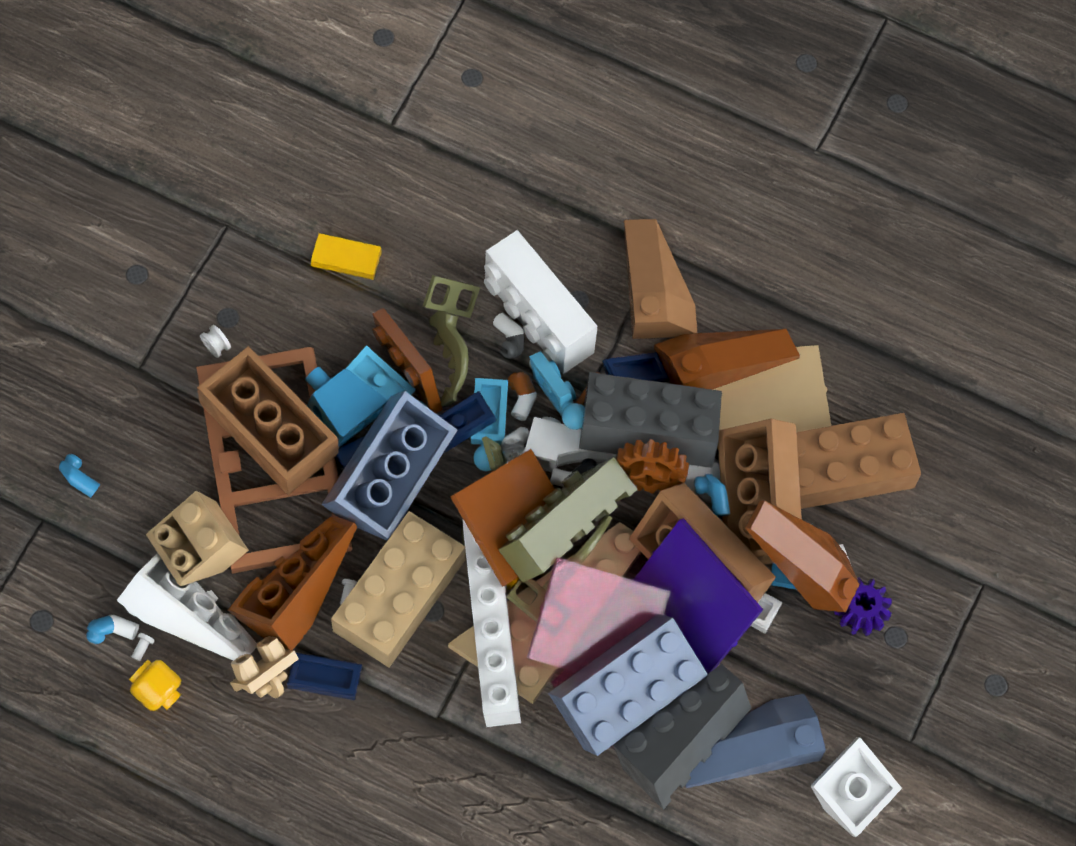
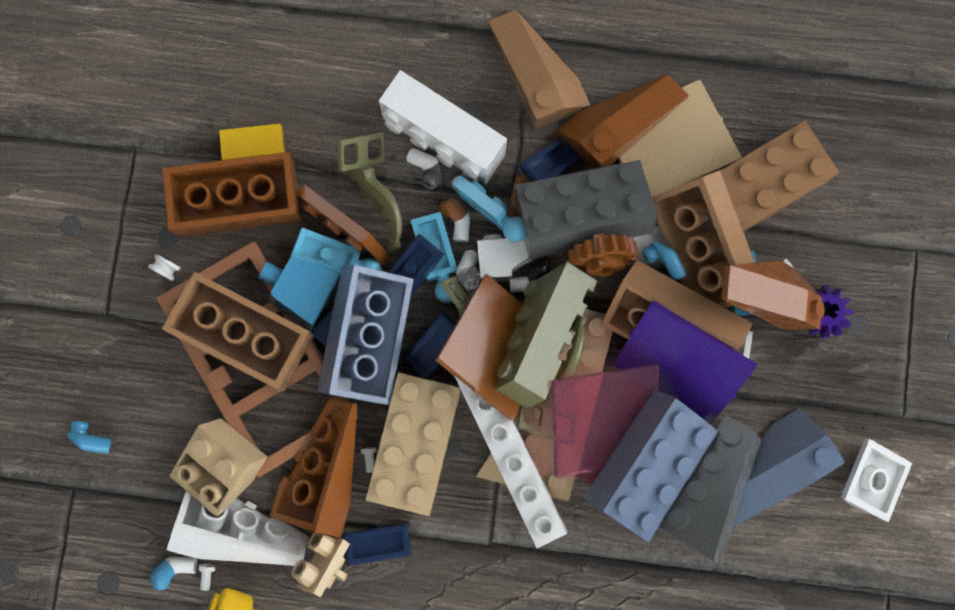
camera: 15 degrees left, 15 degrees up
(309, 295) = (231, 194): none -> dark orange brick
(441, 510) = (427, 348): none -> dark blue tile

